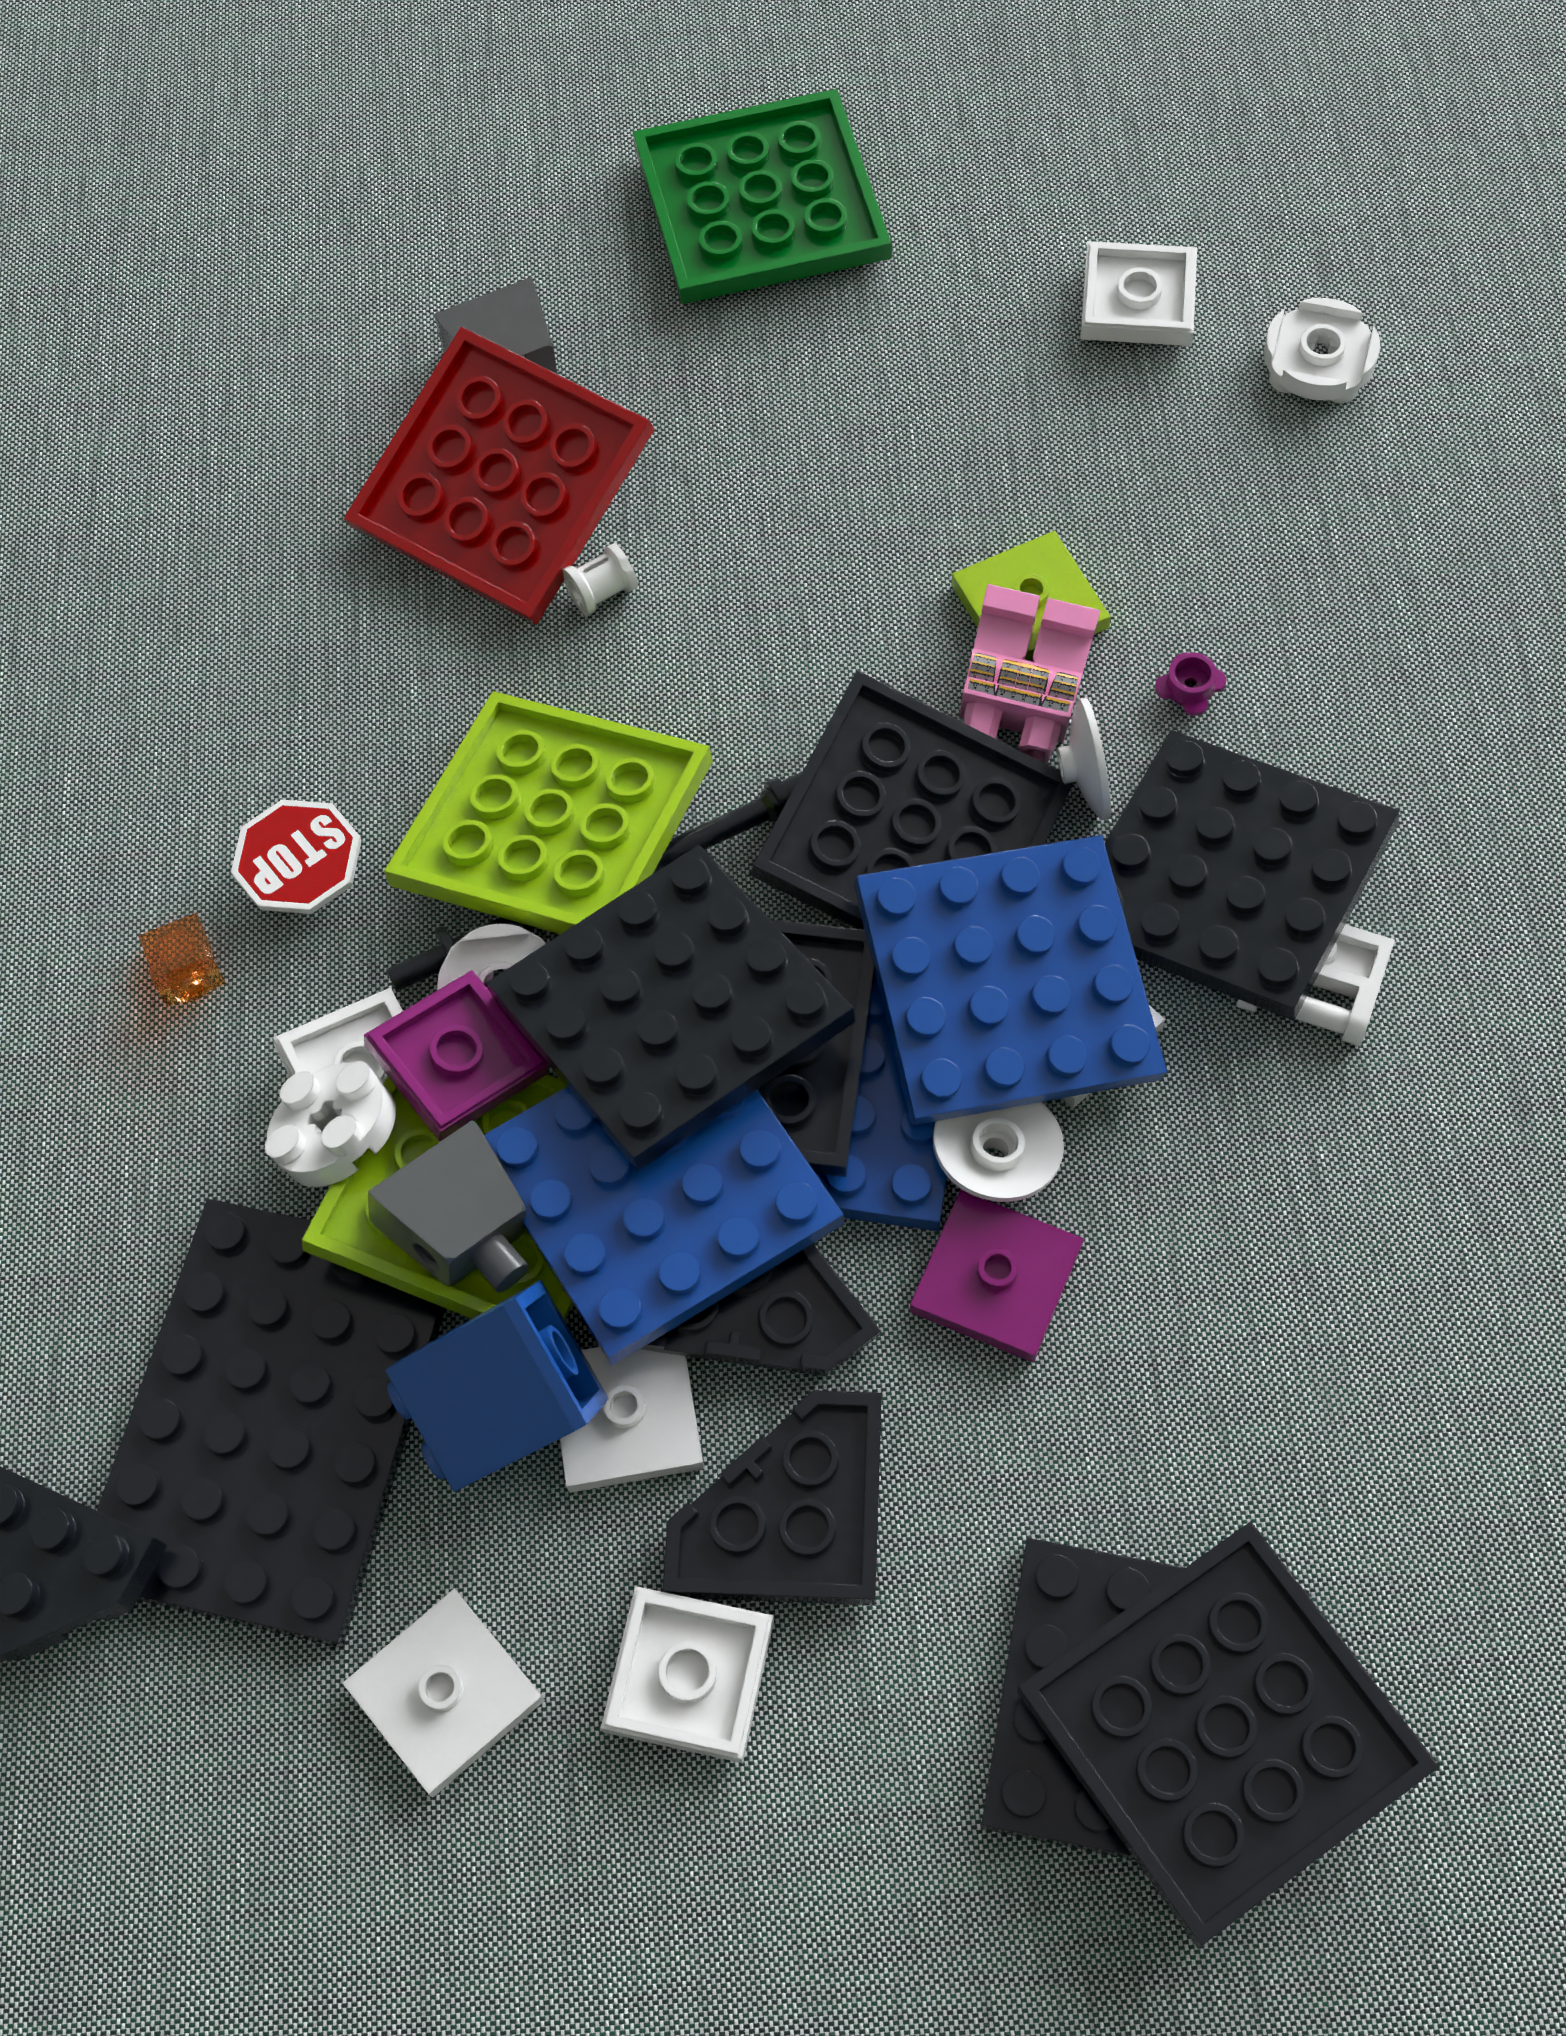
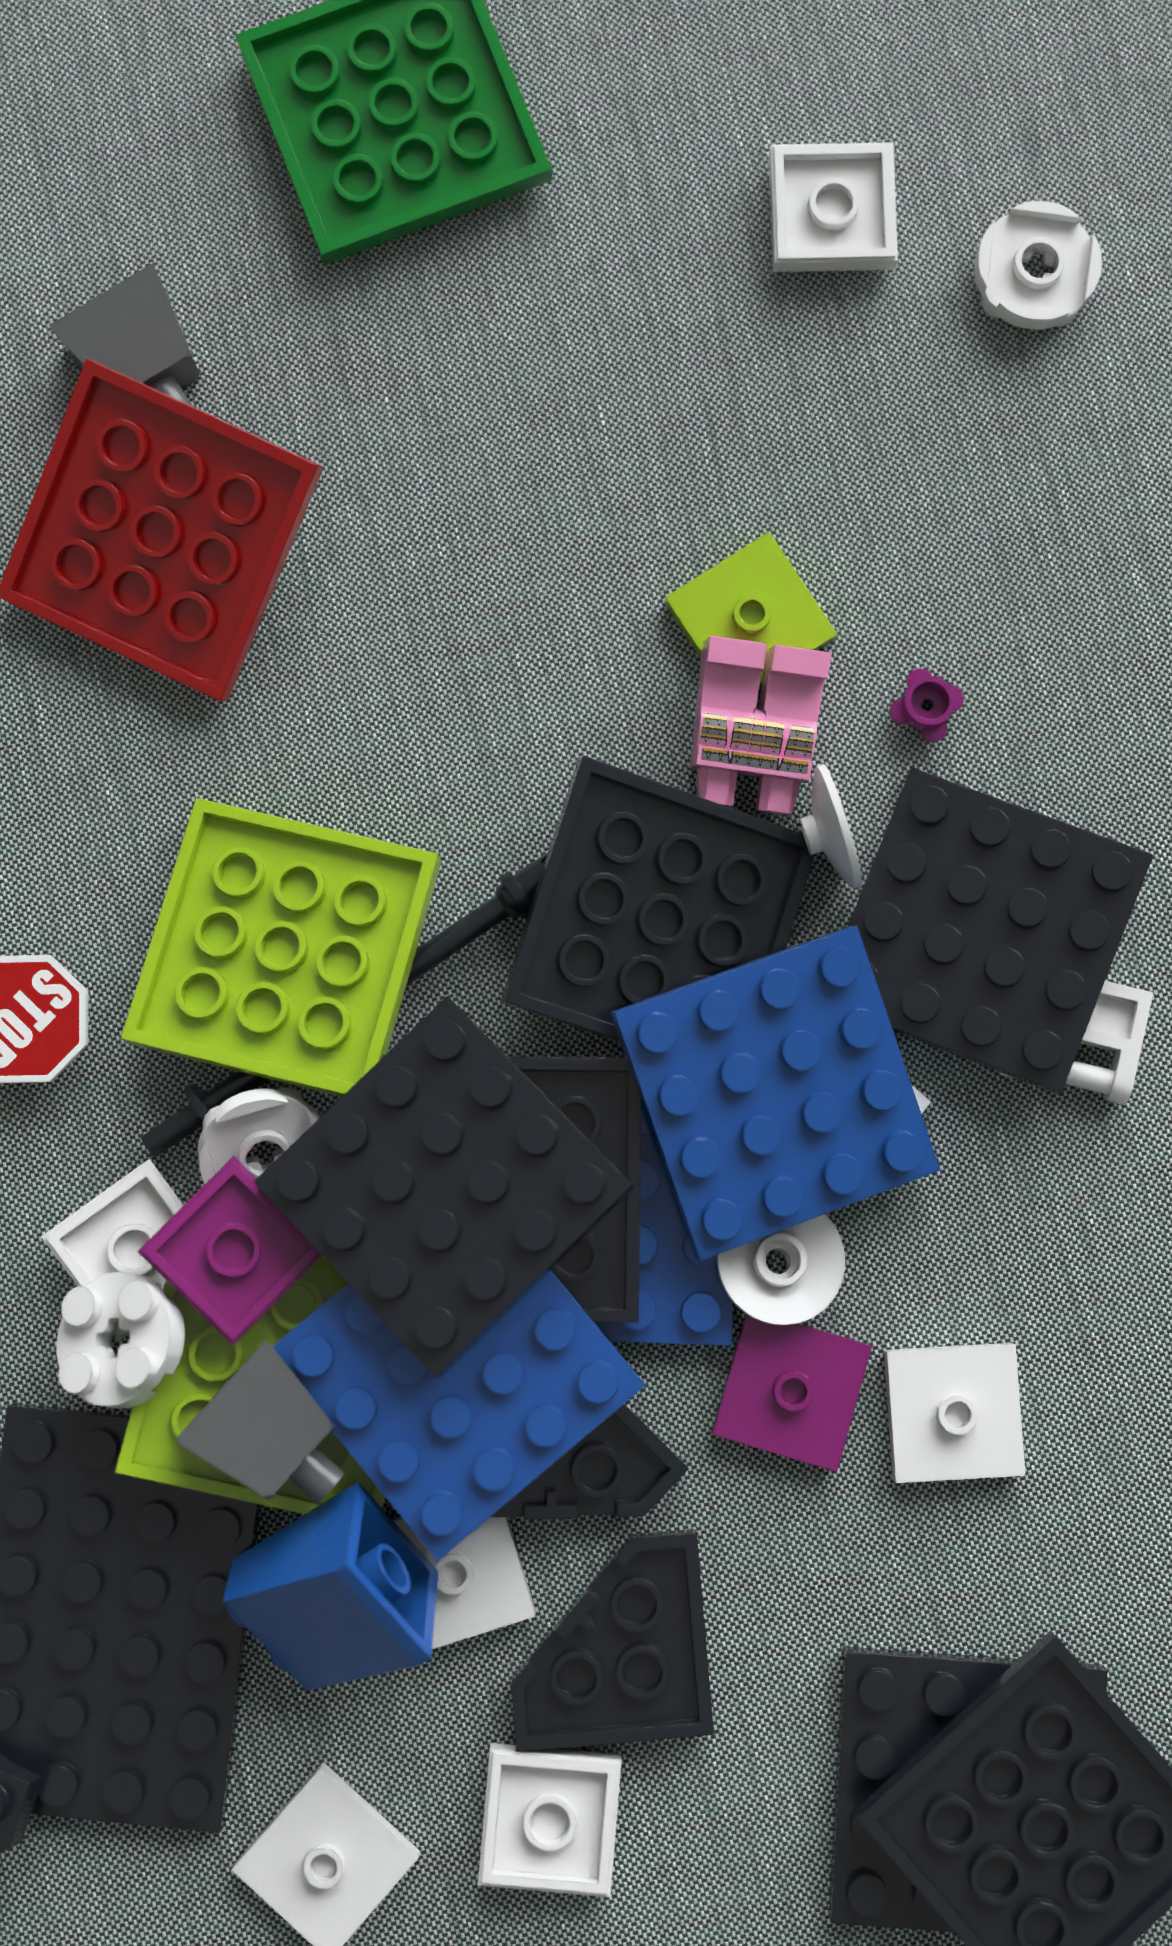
camera: 15 degrees left, 20 degrees up
(600, 579) = (289, 643): white bush -> none
(1164, 1317) = (954, 1413): none -> white plate

